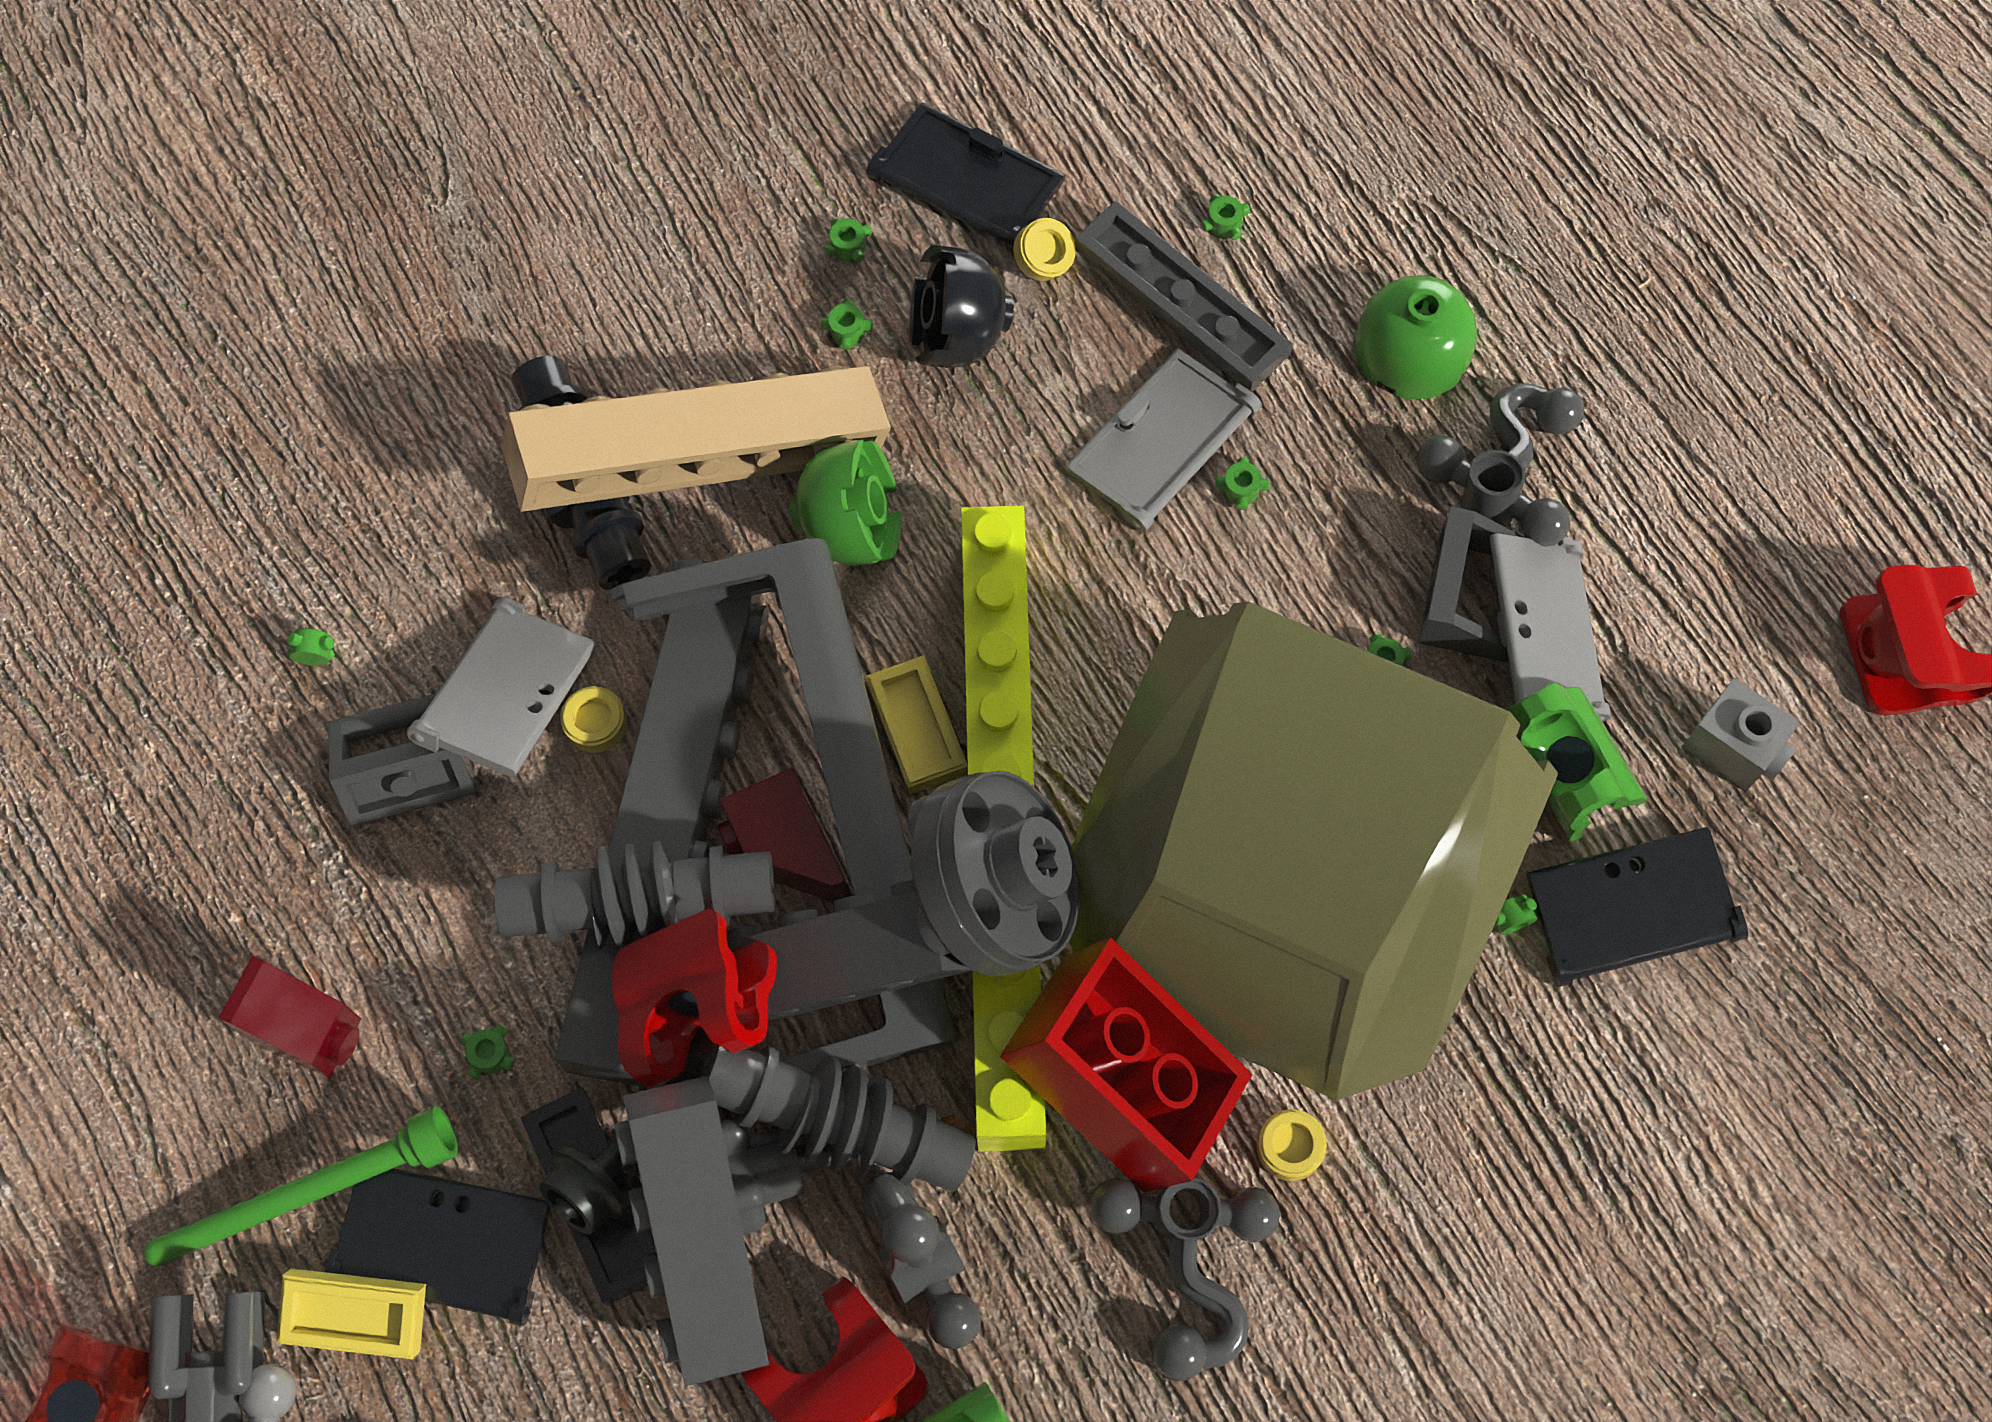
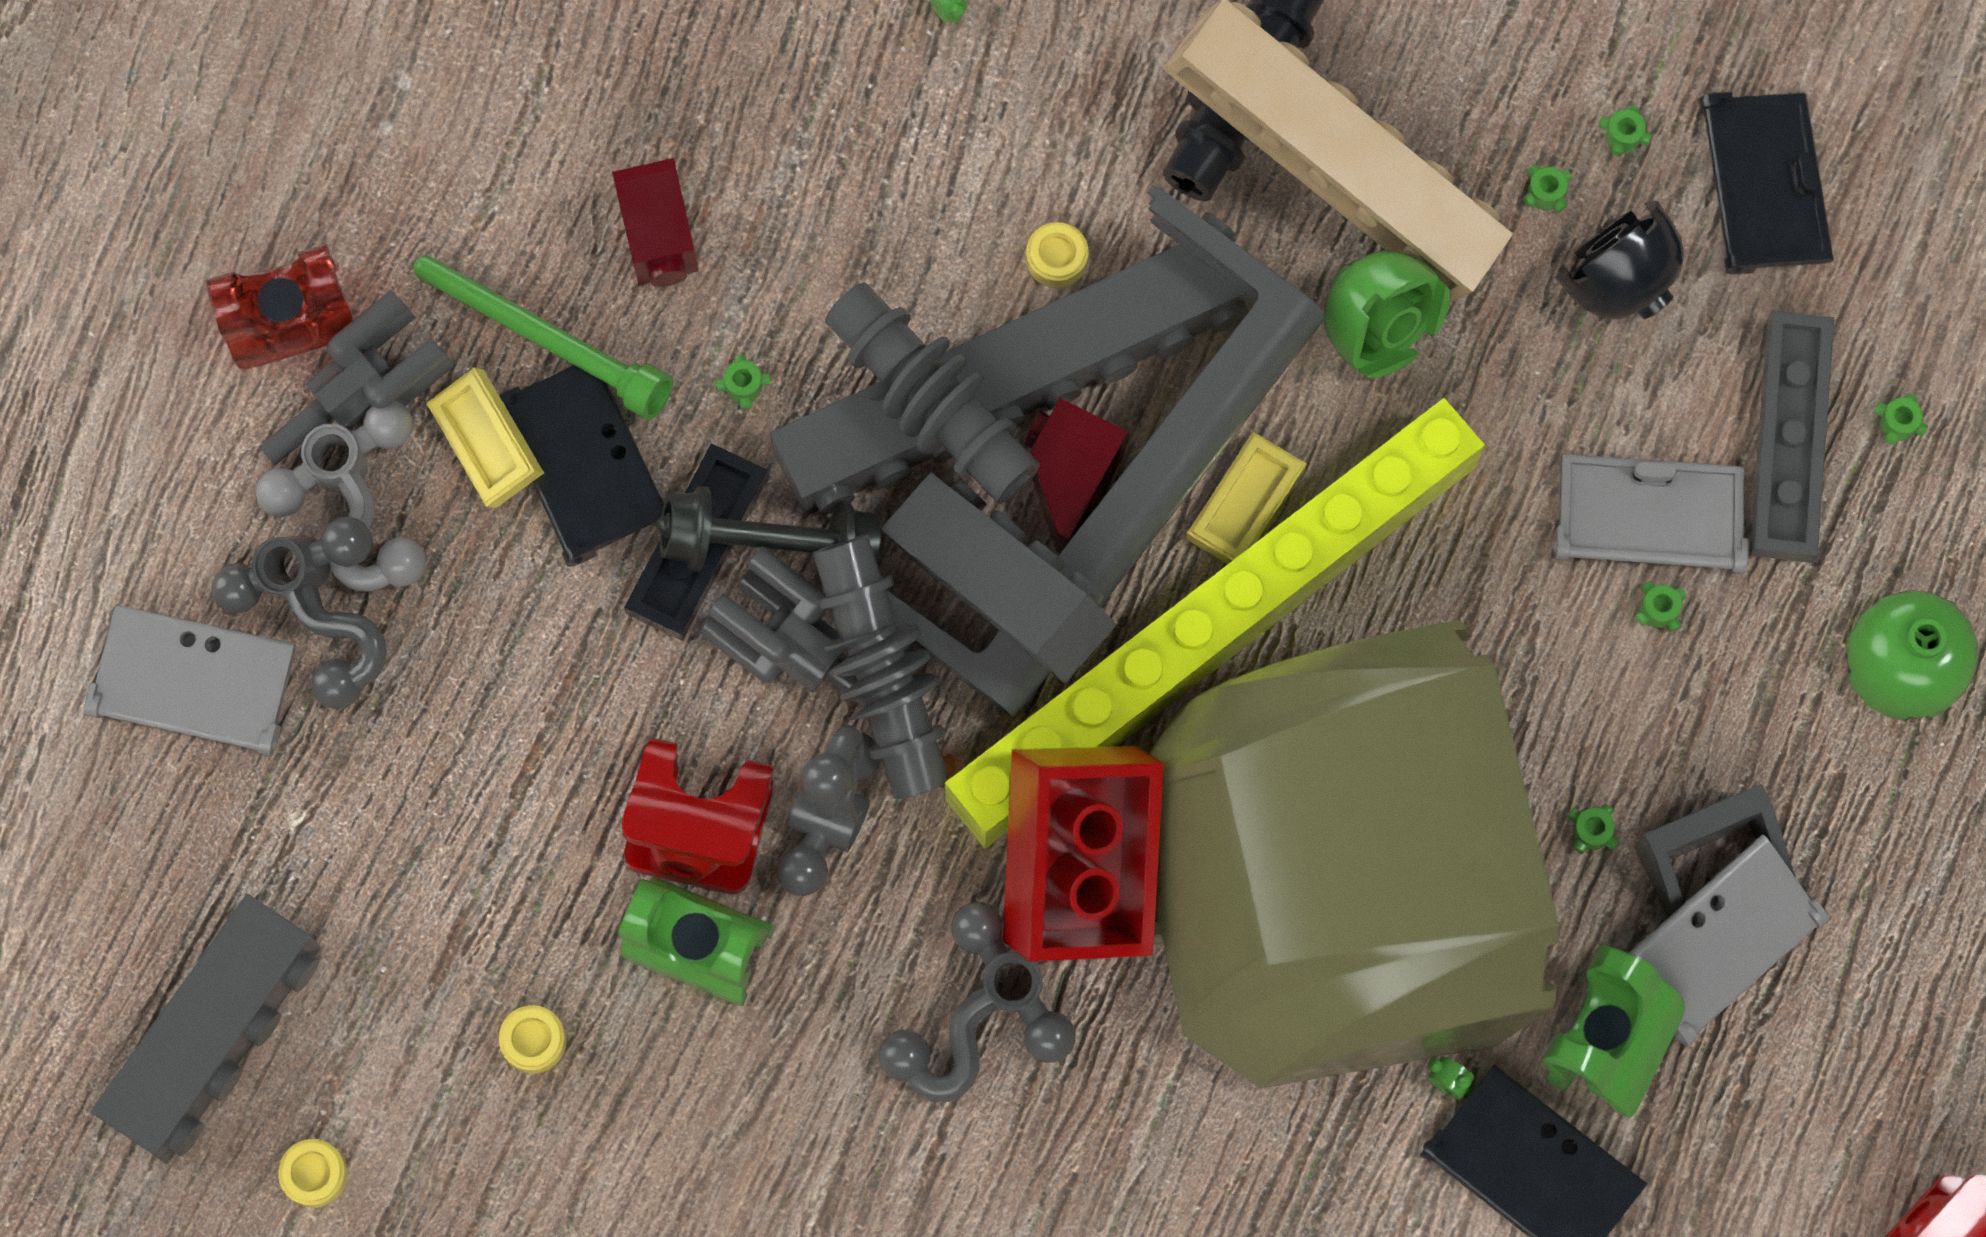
camera: 50 degrees right, 5 degrees up
(394, 777) = (903, 153): dark grey tile -> none
(493, 698) = (1005, 167): light grey door -> none
(683, 982) = (885, 480): red piece -> none
(695, 1231) = (717, 625): dark grey brick -> none
(992, 873) = (1142, 637): dark grey piece -> none
(1044, 249) = (1743, 294): light yellow tile -> none
(1291, 1145) = (1129, 1031): light yellow tile -> none
(1443, 461) = (1811, 753): dark grey piece -> none
(1743, 736) = (1751, 1161): light grey brick -> none

